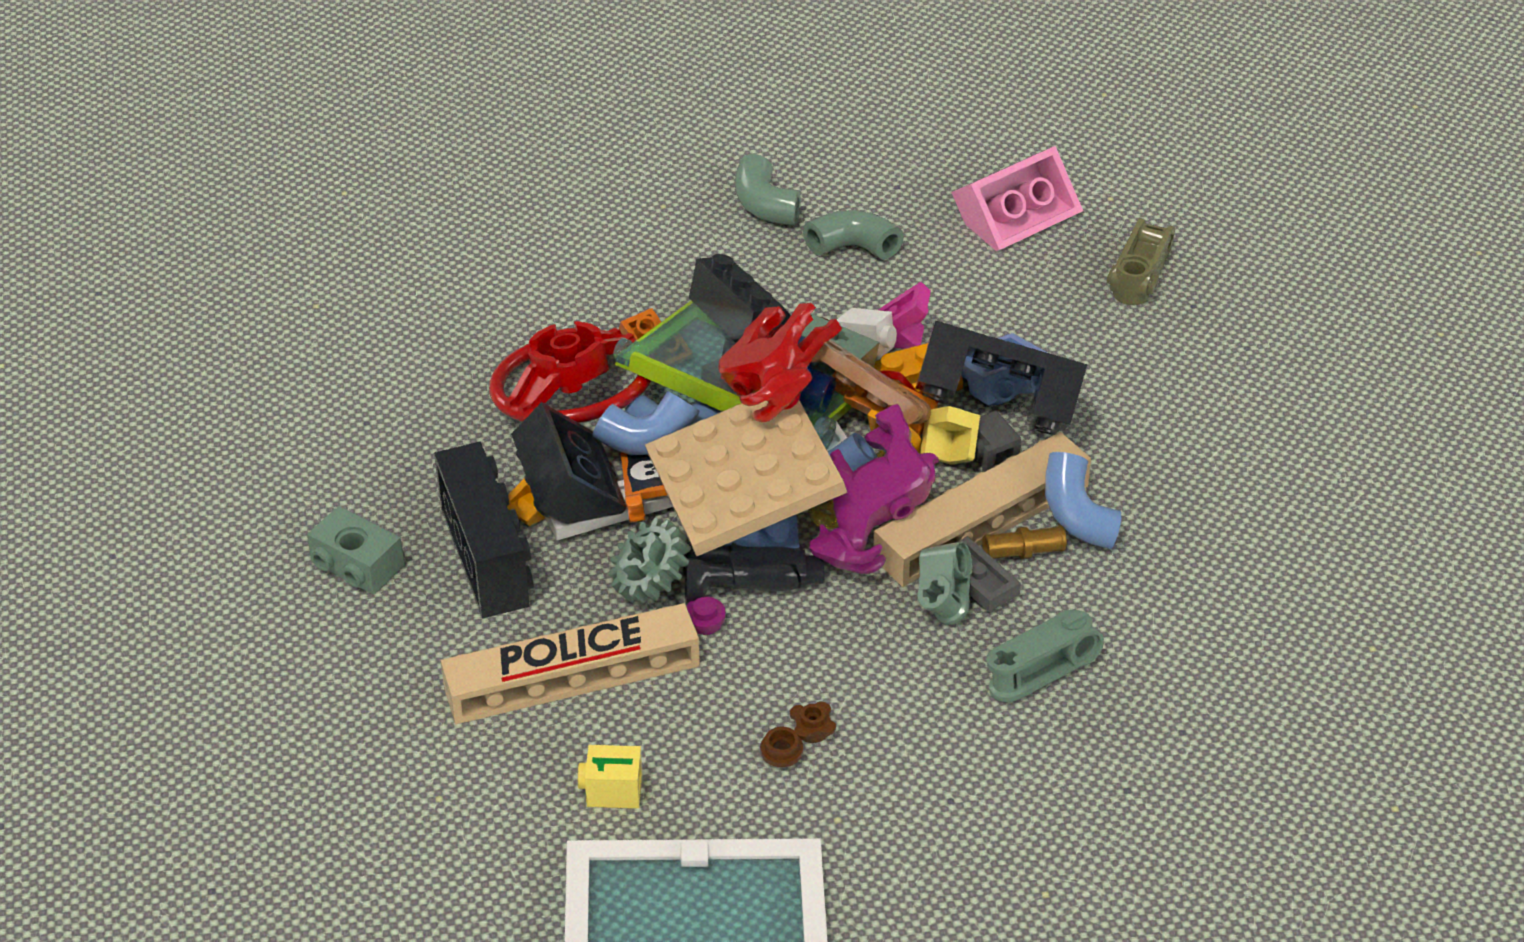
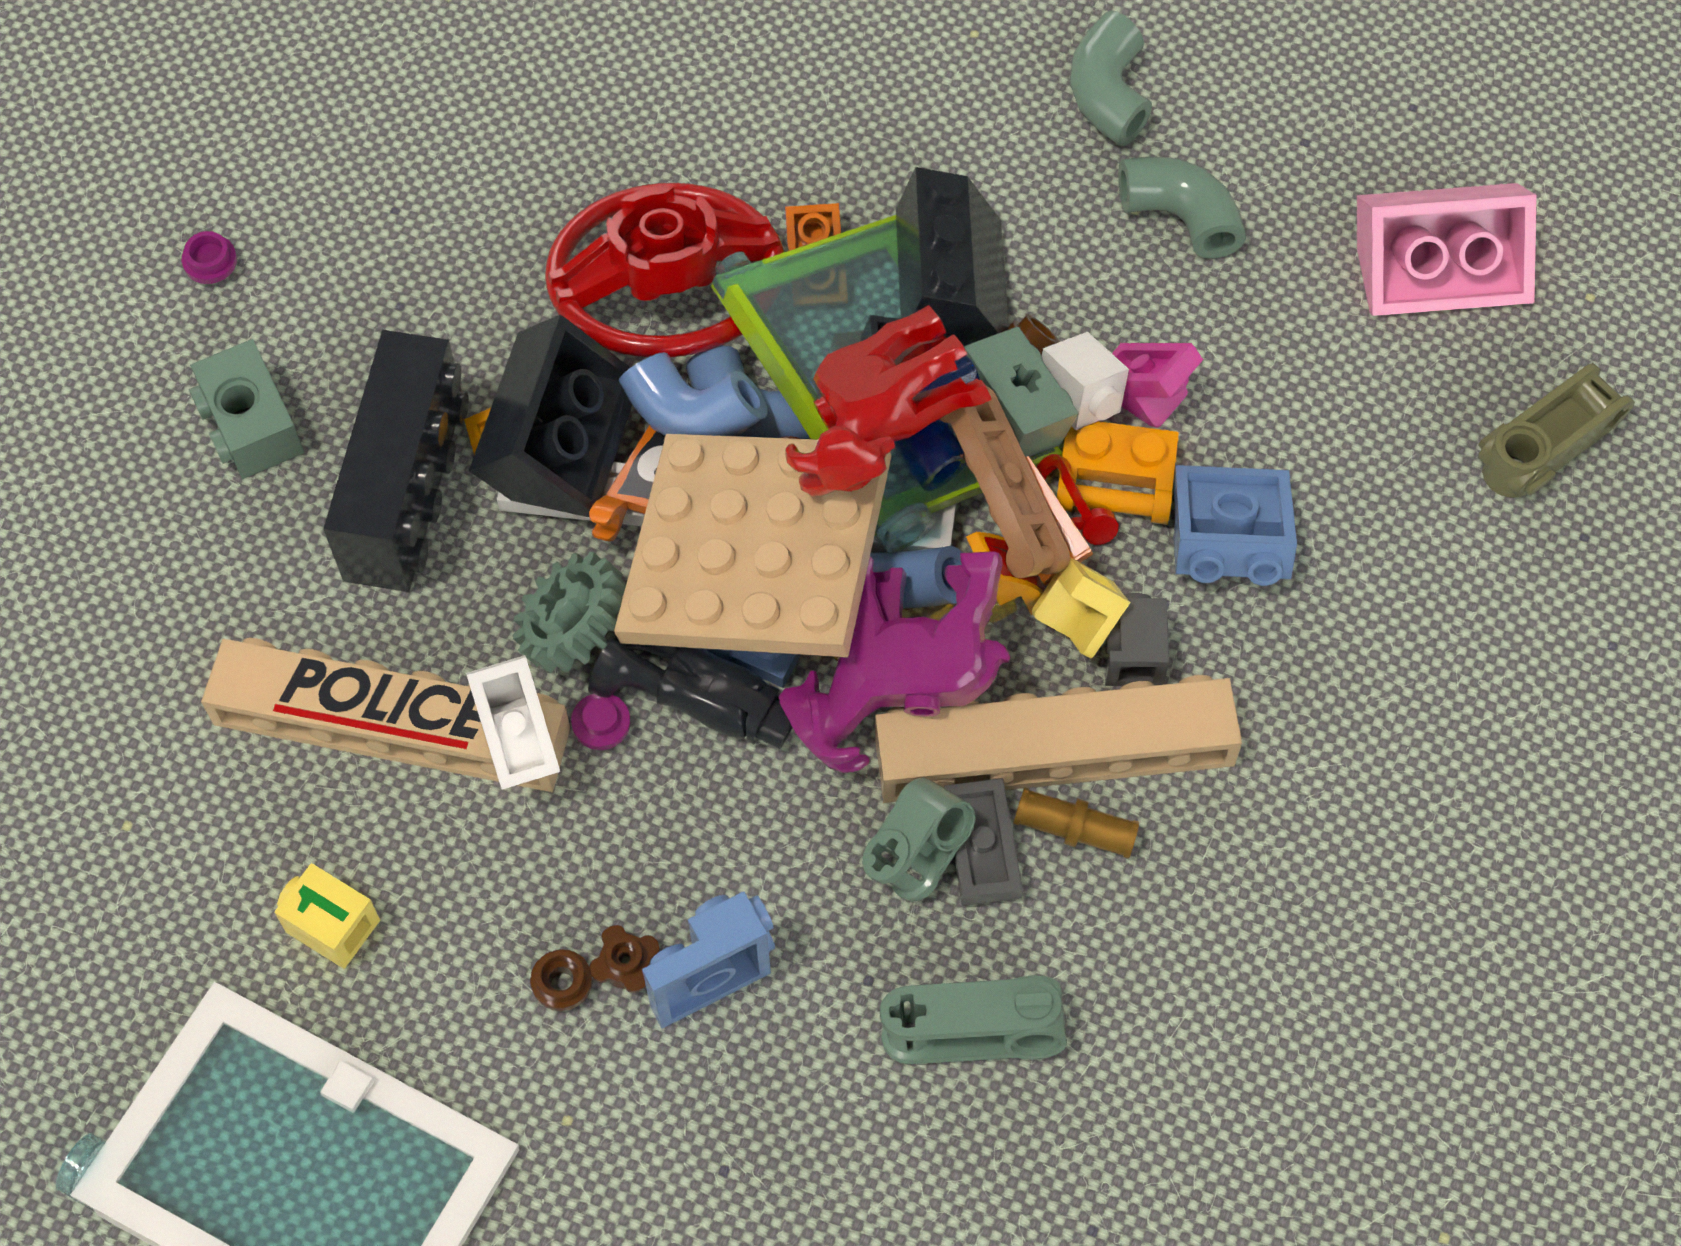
camera: 30 degrees right, 20 degrees up
(265, 487) = (208, 257): none -> magenta plate
(663, 602) = (513, 722): none -> white slope
(872, 685) = (725, 955): none -> medium blue plate
(1057, 376) = (1145, 486): black plate -> none
(1073, 507) = (1165, 806): medium blue cylinder -> none

